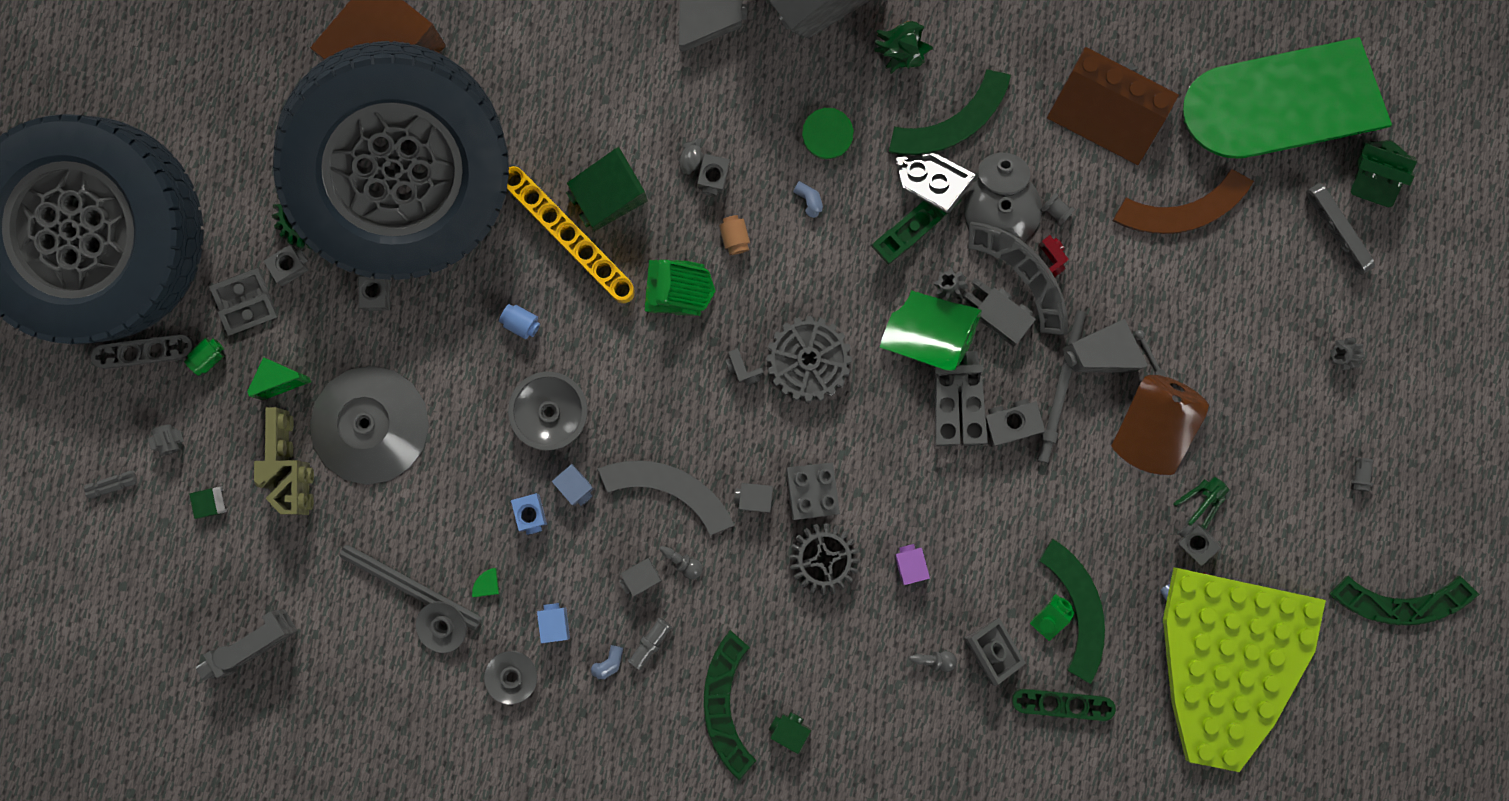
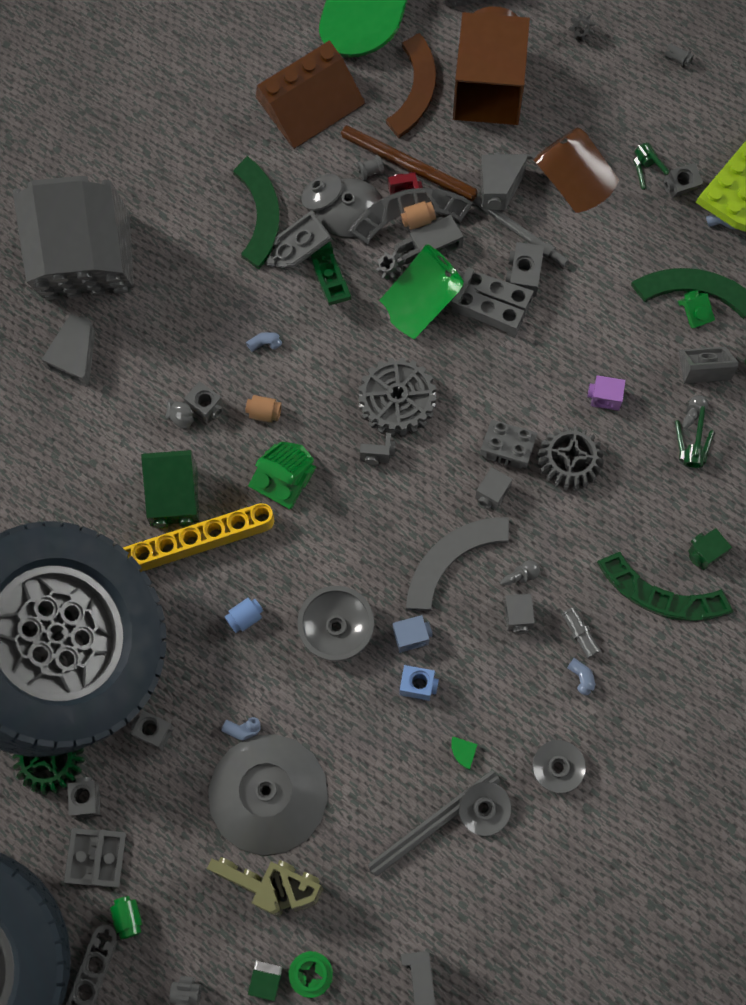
camera: 65 degrees left, 15 degrees down
(222, 530) = (298, 980): none -> green gear
(274, 379) = (183, 852): green slope -> none
(413, 374) = (242, 731): none -> sand blue arm
(553, 623) = (527, 705): medium blue brick -> none
(827, 133) = (218, 305): green tile -> none
(885, 679) = (694, 455): none -> dark green plant
(903, 45) = (180, 216): dark green hair -> none
(1017, 286) = (418, 215): none -> medium nougat brick
(1083, 246) = (409, 163): none -> reddish brown axle
(1236, 279) = (491, 66): none -> reddish brown container

